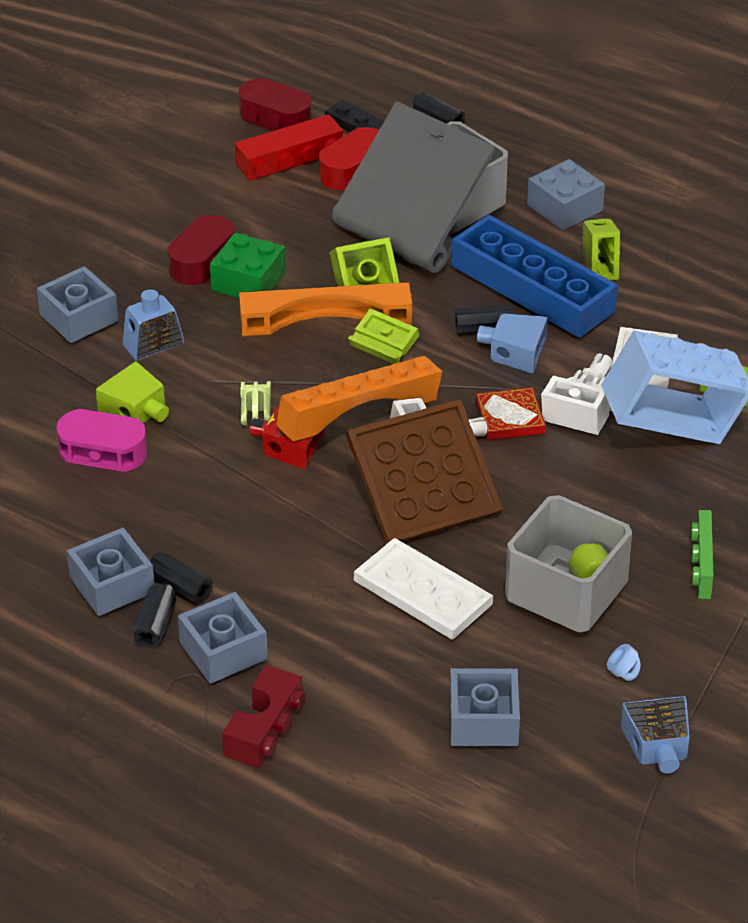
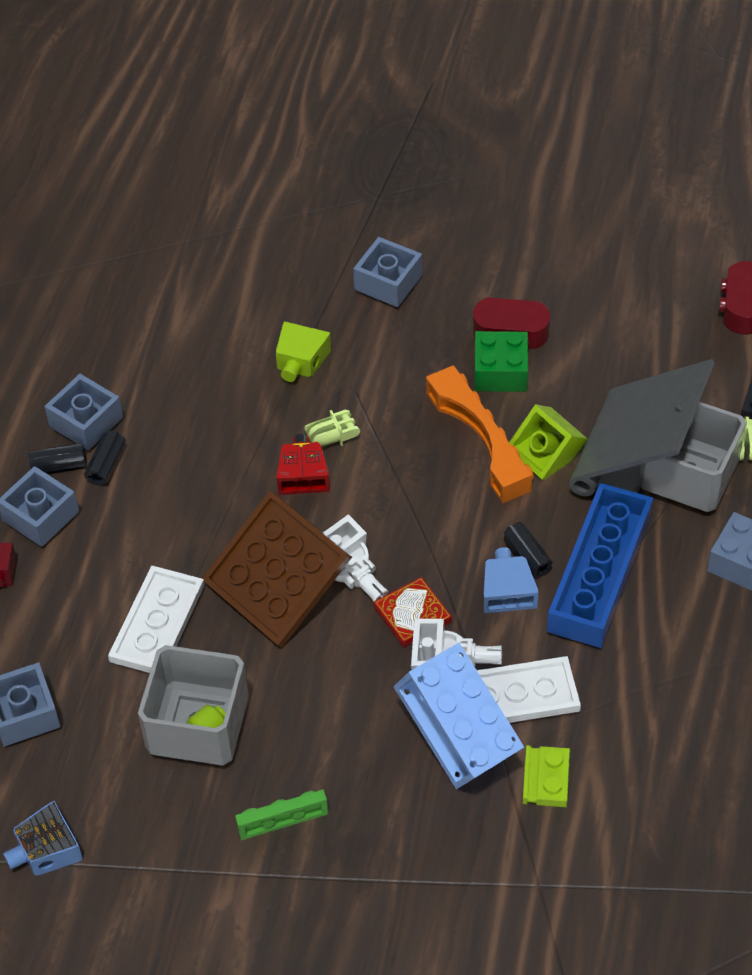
camera: 70 degrees right, 10 degrees up
(102, 440) = (240, 351): dark pink brick -> none
(151, 326) = (386, 328): torso -> none
(286, 147) = (691, 328): red brick -> none
(313, 408) = (312, 465): orange arch -> none
(342, 158) = (724, 383): red brick -> none
(383, 336) = (465, 486): lime plate -> none
(602, 240) = (673, 603): lime torso -> none
(622, 661) = (122, 789): light blue tile -> none

